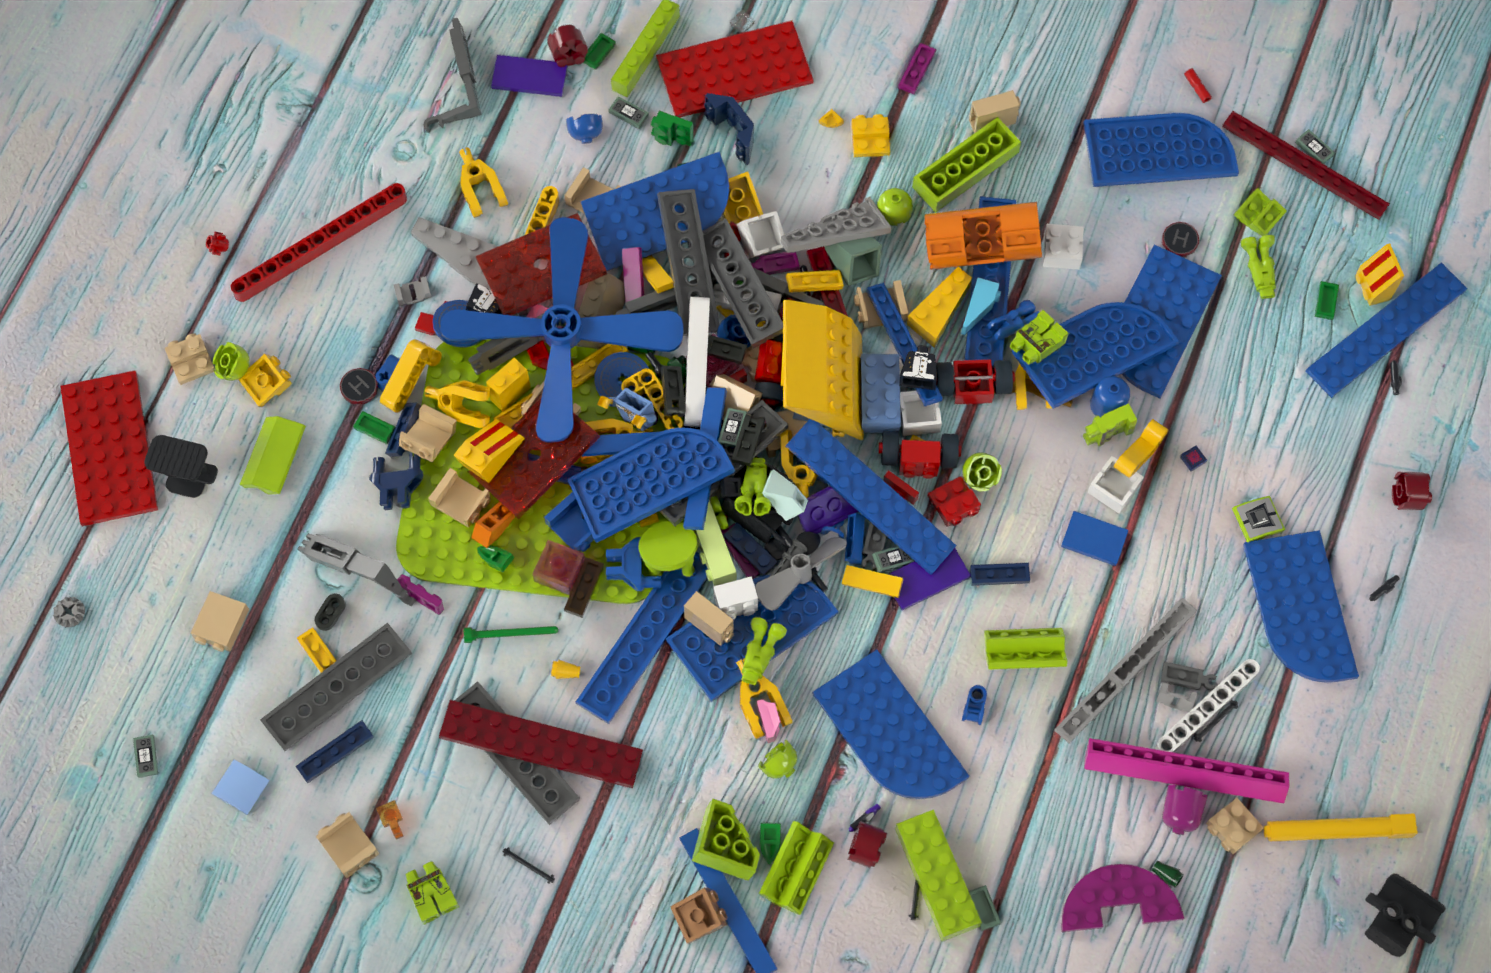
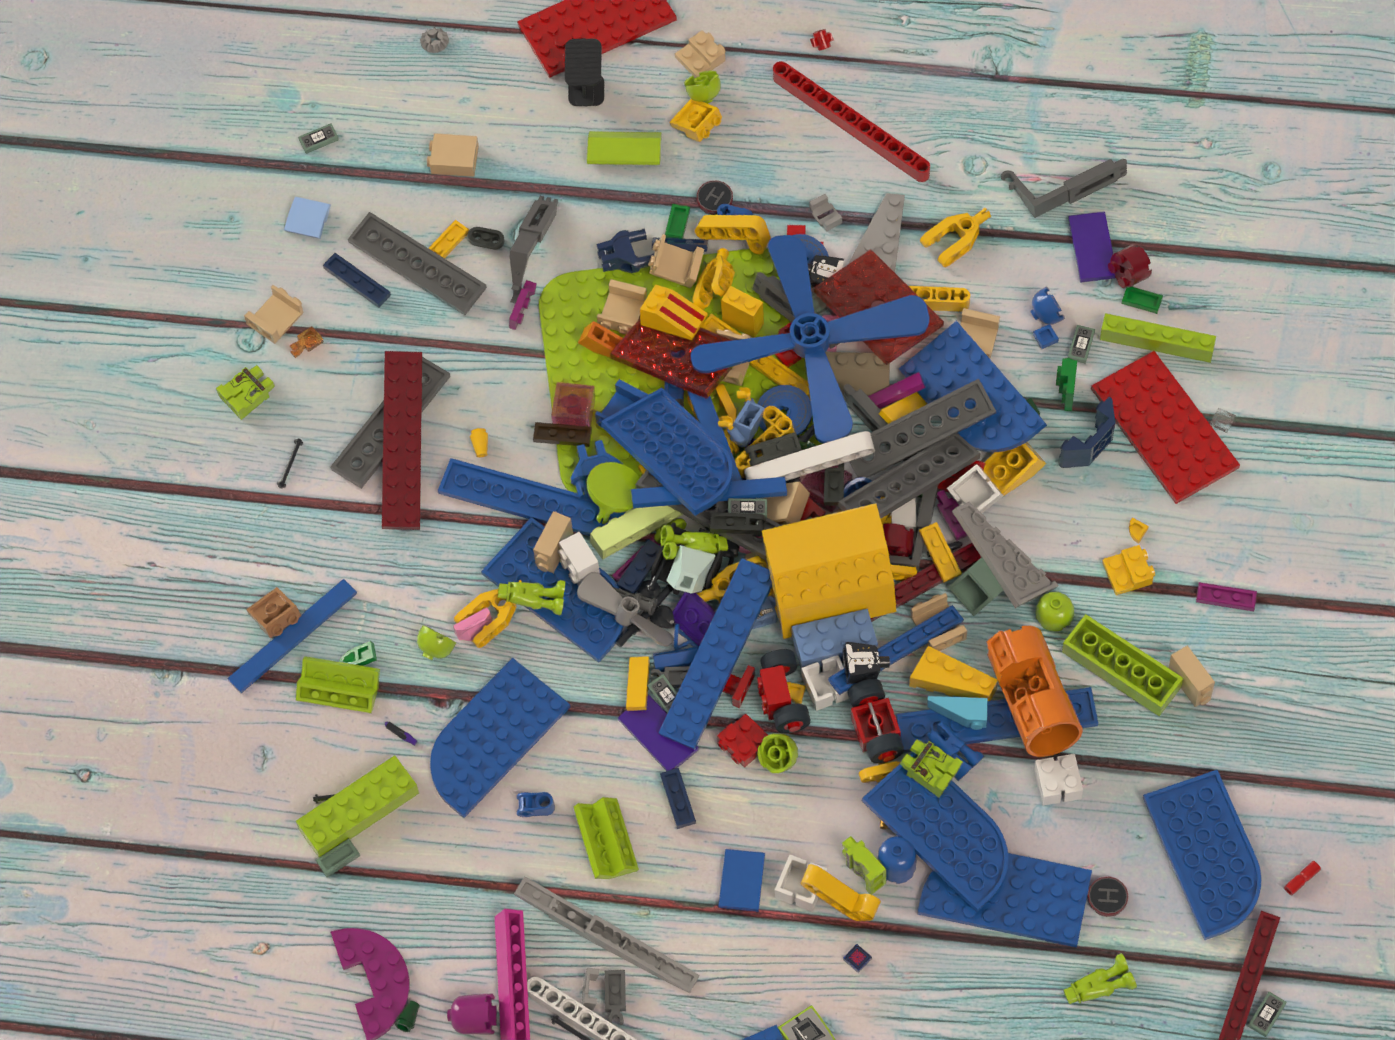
camera: 80 degrees right, 5 degrees down
(471, 634) = (494, 356): green piece -> none
(496, 557) = (571, 354): green plate -> none
(612, 138) = (1045, 336): none -> blue plate
(725, 842) = (343, 613): lime brick -> none
(730, 487) = (685, 522): black tile -> none
(866, 845) = (370, 735): dark red brick -> none
(1260, 212) = (1167, 971): lime slope -> none

